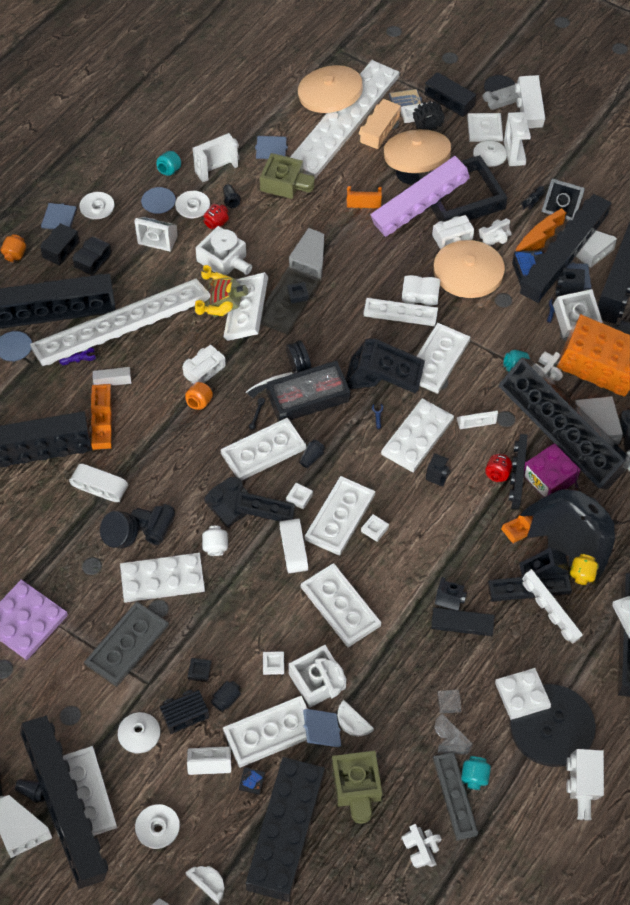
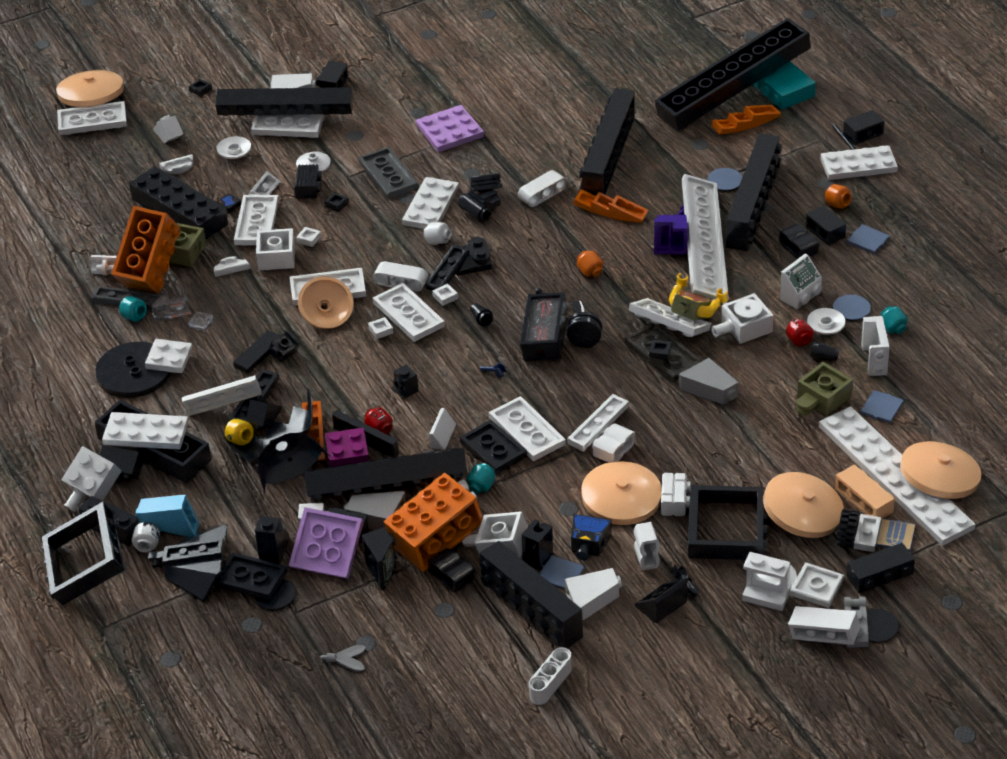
camera: 120 degrees right, 15 degrees down
(96, 205) = (862, 259): white dish -> none
(112, 376) = (646, 224): white slope -> none
(131, 341) = (670, 234): none -> dark purple plate
(204, 365) = (621, 276): white brick -> none
(226, 696) = (302, 205): black brick -> none
(263, 449) = (507, 287): white plate -> none
(321, 728) = (235, 242): sand blue piece -> none
(332, 675) = (263, 244): white tile -> none
(363, 199) = (764, 446): orange hinge -> none
(375, 583) = (326, 292): none -> light nougat dish
(381, 361) = (527, 374): black bracket -> none
(413, 778) = (146, 250): none -> orange brick
(417, 435) = (454, 389): white plate -> none
(420, 196) = (725, 471): lavender brick -> none
(473, 372) = (493, 446): none -> black plate
(496, 233) = (658, 522): white hips -> none
(525, 219) = (646, 546): none -> white brick
(541, 232) = (627, 557): orange slope -> none
(565, 248) = (584, 552): black brick -> none
(586, 779) = (73, 354): white brick -> none

